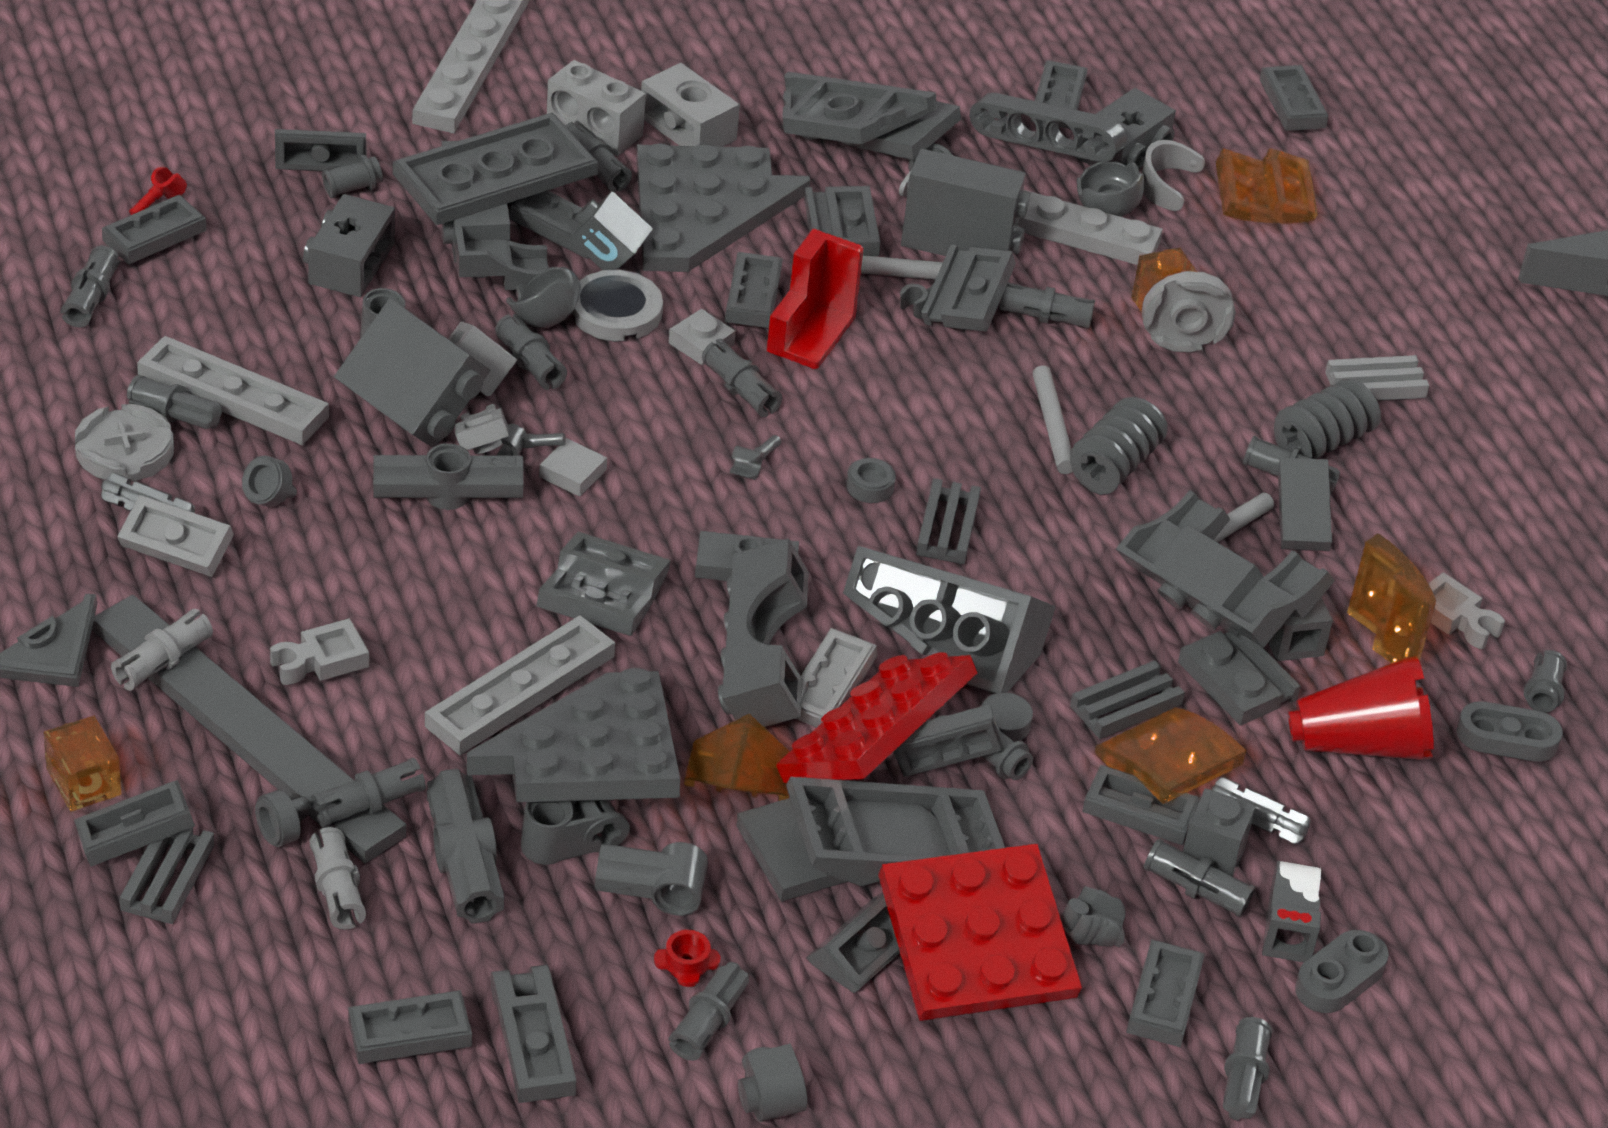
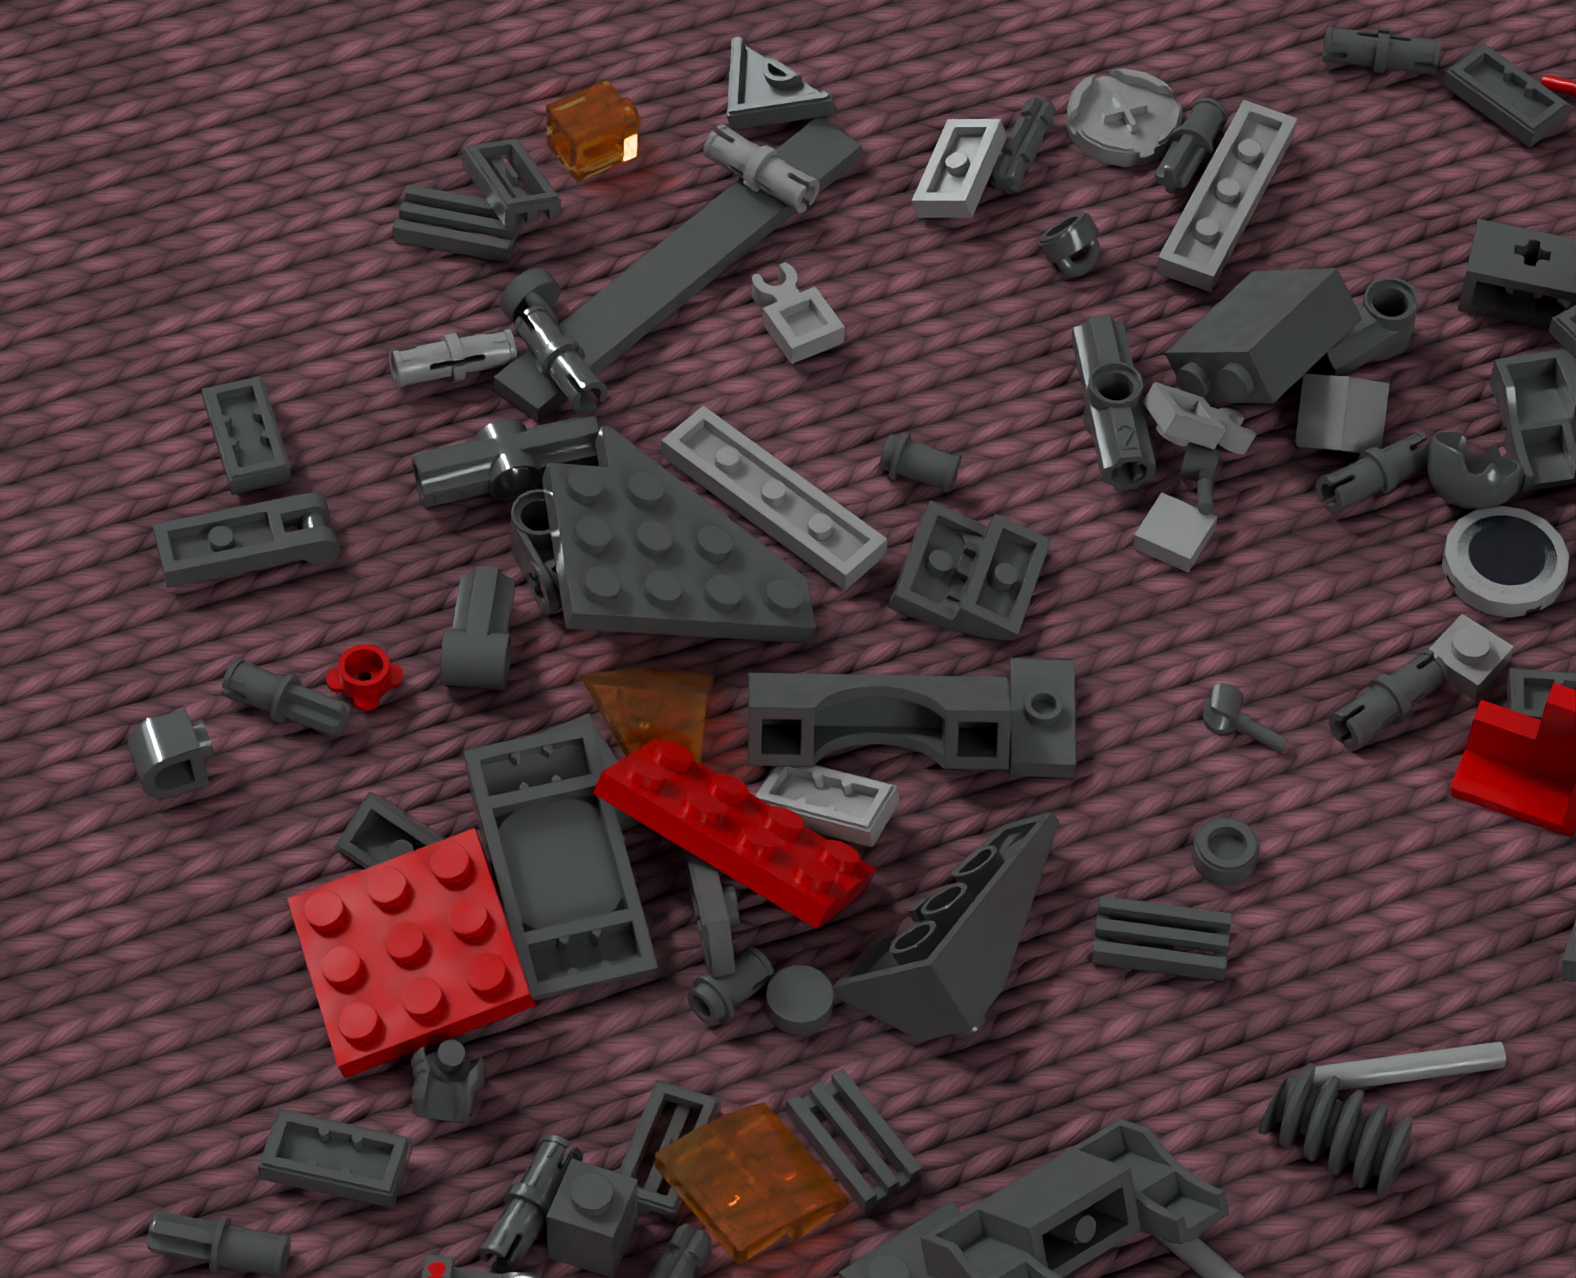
camera: 90 degrees right, 10 degrees up
(486, 603) = (919, 462): none -> dark grey pin

